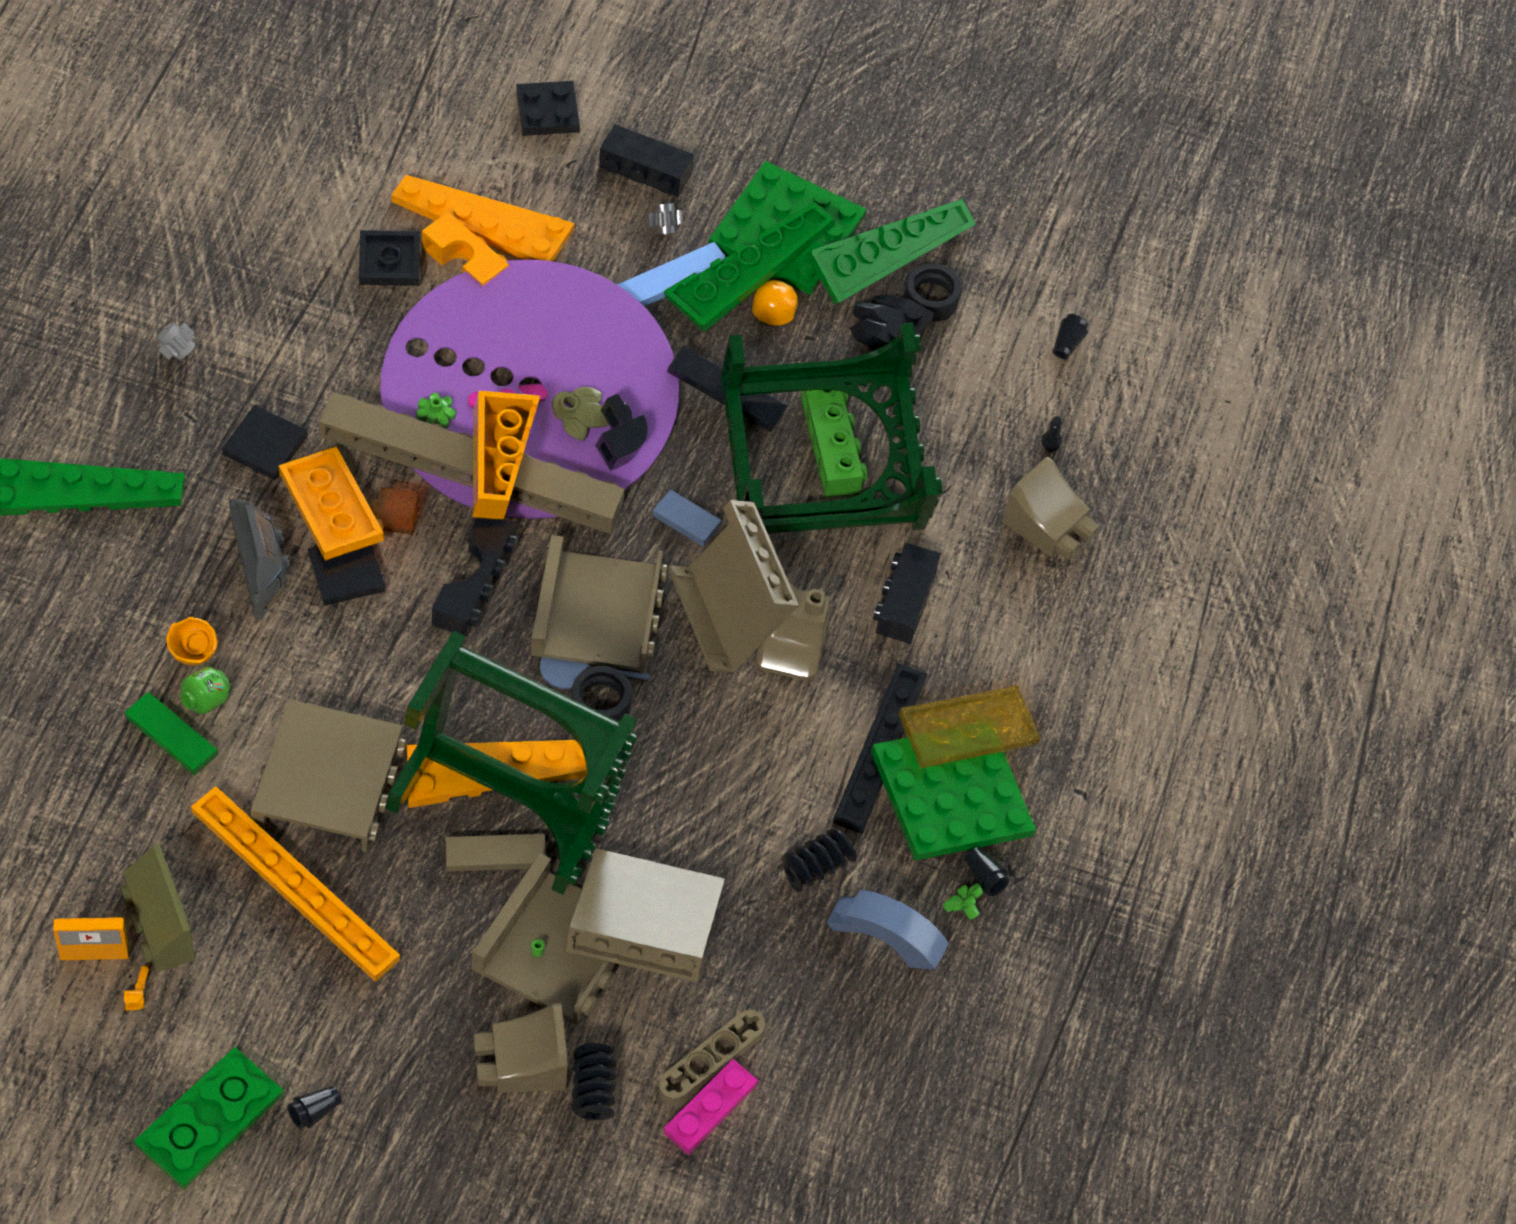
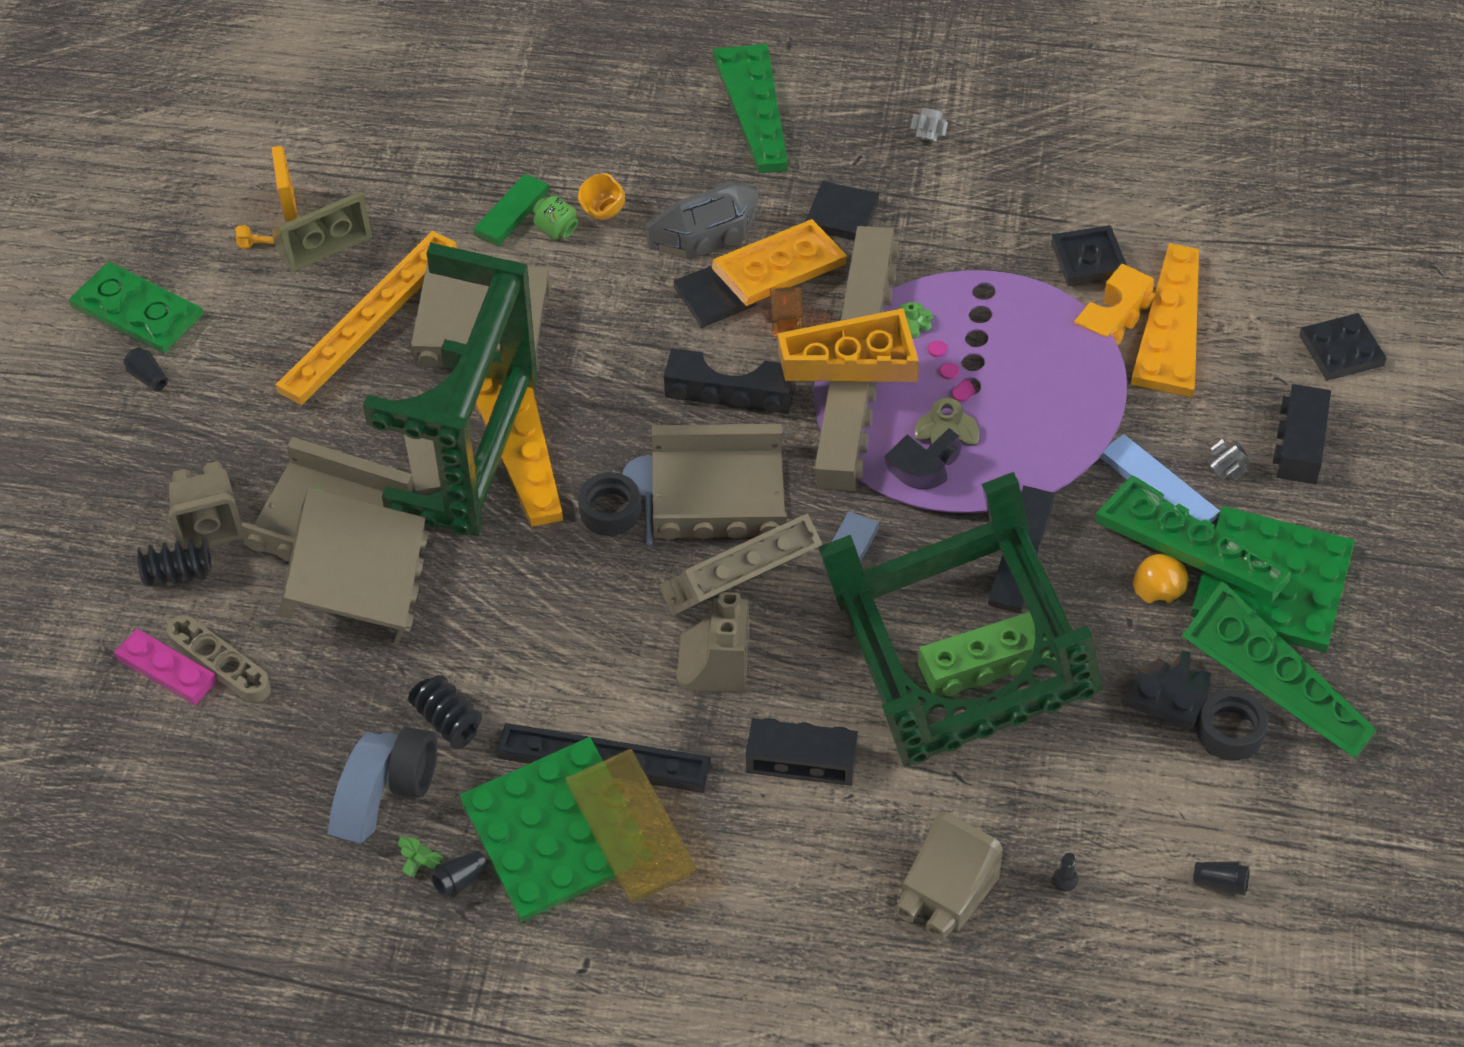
camera: 90 degrees right, 5 degrees down
(877, 878) = (412, 762): none -> black tyre

